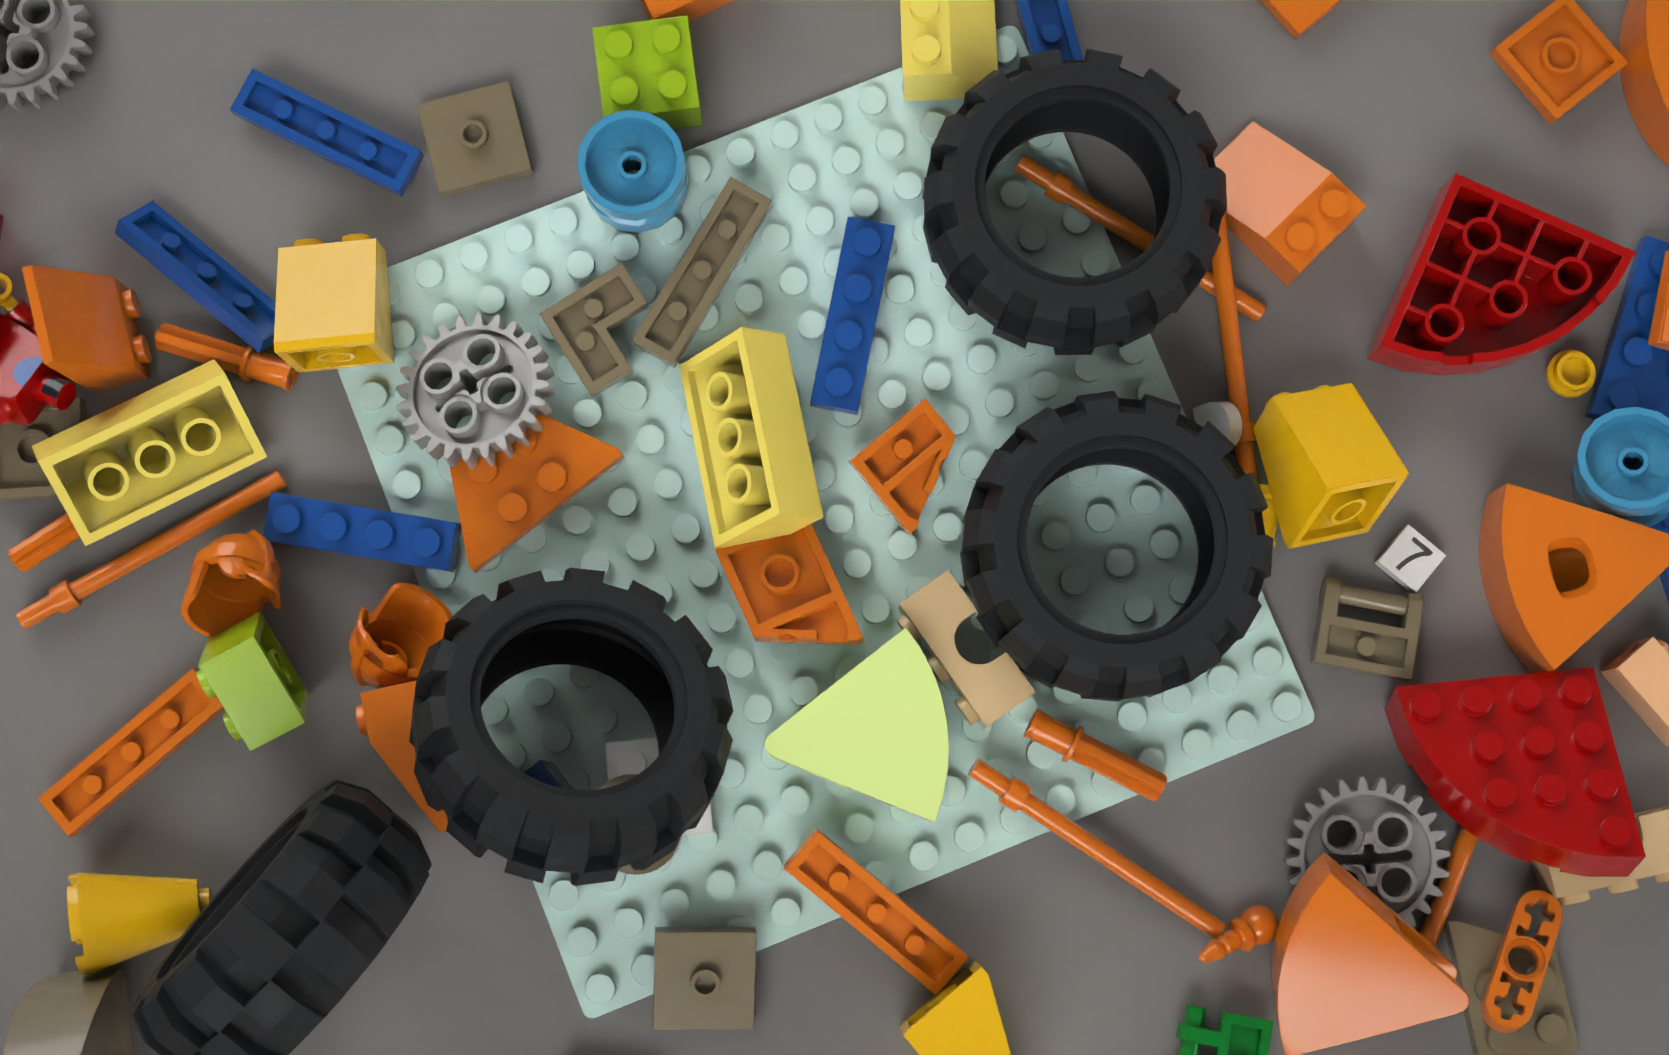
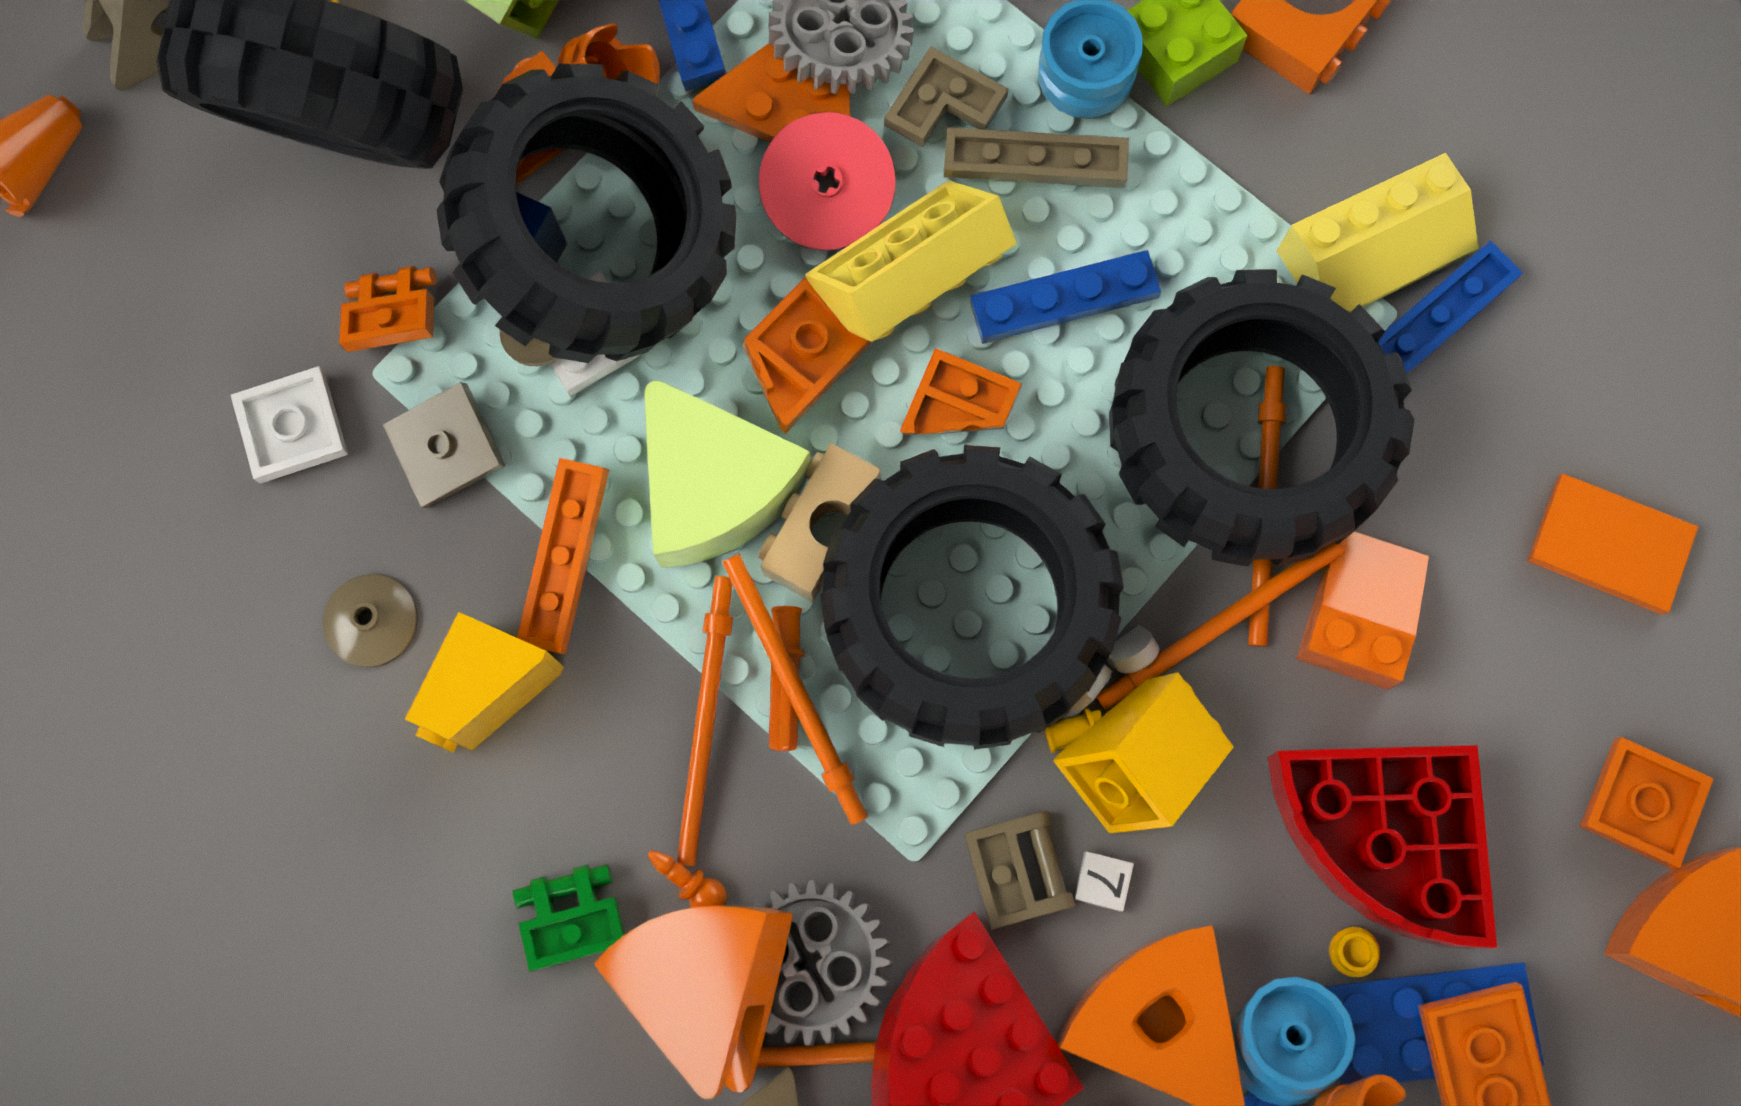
camera: 70 degrees right, 5 degrees down
(546, 975) = (387, 319): none -> orange plate
(630, 441) = (811, 149): none -> coral piece
(1207, 750) = (836, 774): none -> orange bar

